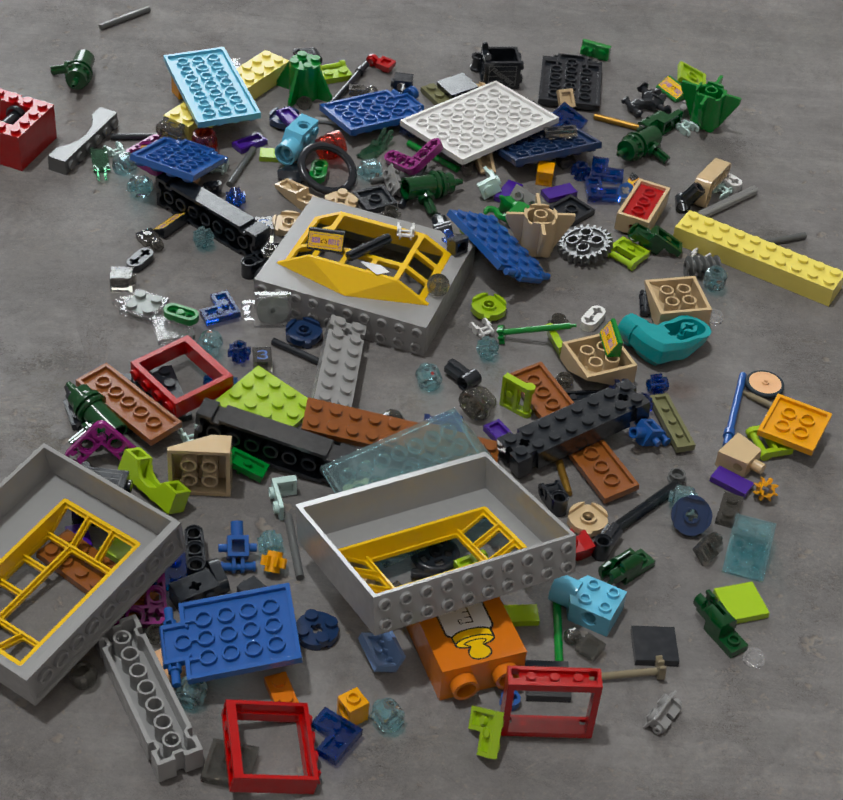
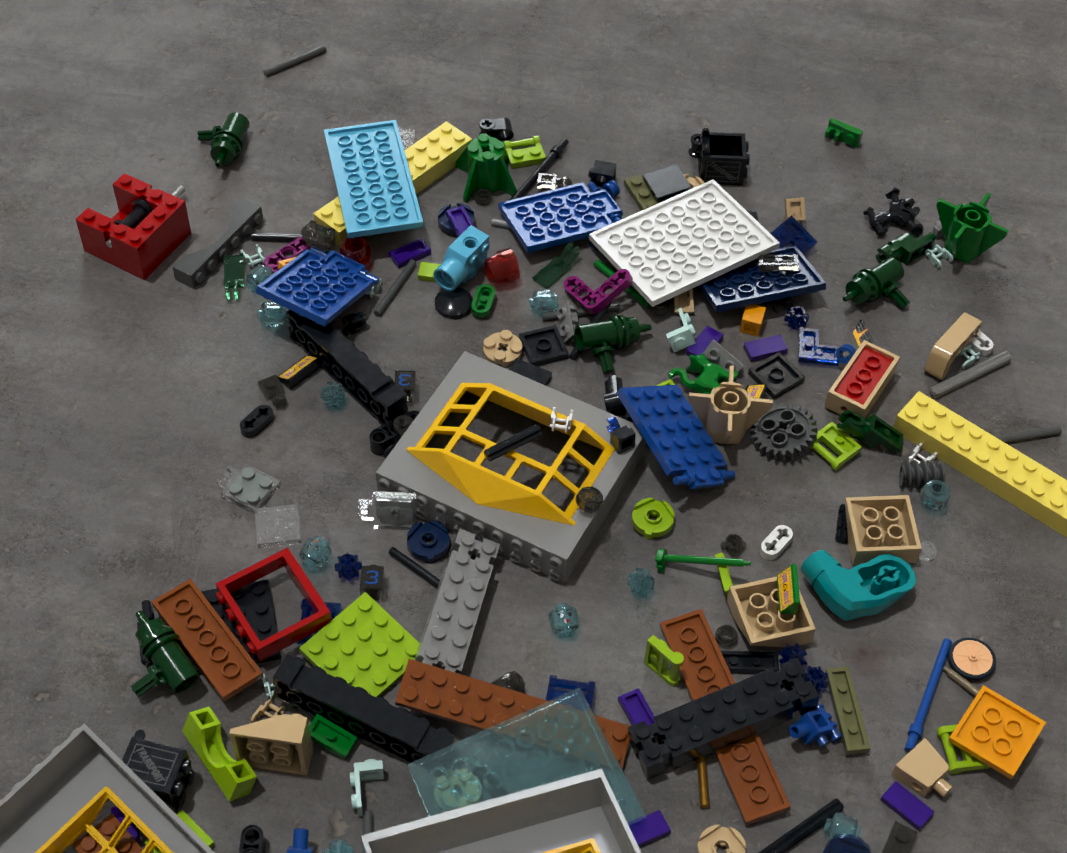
camera: 10 degrees right, 10 degrees up
(98, 439) = (162, 693): magenta beam -> none
(122, 279) = (230, 450): clear smoke brick -> none
(181, 314) = (289, 510): green plate -> none
(223, 309) = (340, 503): clear blue plate -> none
(235, 197) = (379, 336): clear blue gear -> none
(280, 222) = (426, 373): tan plate -> none
(294, 192) = (454, 335): tan slope -> none
(326, 240) = (463, 430): slope -> none
(332, 148) = (497, 272): black wedge -> none
(377, 269) = (517, 474): white sticker -> none
(384, 63) = (585, 143): red plate -> none
(391, 211) = (559, 368): clear smoke plate -> none
(465, 378) = (608, 623): black piece -> none
(477, 403) = (614, 666): clear smoke piece -> none
(478, 331) = (634, 552): white piece -> none
(554, 497) = (686, 809): black piece -> none
(574, 72) = (809, 171): black plate -> none
(607, 174) = (823, 320): clear blue plate -> none
(615, 121) = (852, 242): pearl gold bar -> none
(657, 384) = (838, 652): clear blue gear -> none
(671, 88) = (928, 194): slope -> none
(677, 474) = (842, 788): dark grey plate -> none
(688, 197) = (917, 370): black piece -> none
(689, 74) = (956, 180): lime tile -> none
(770, 493) = (946, 830): light orange gear -> none

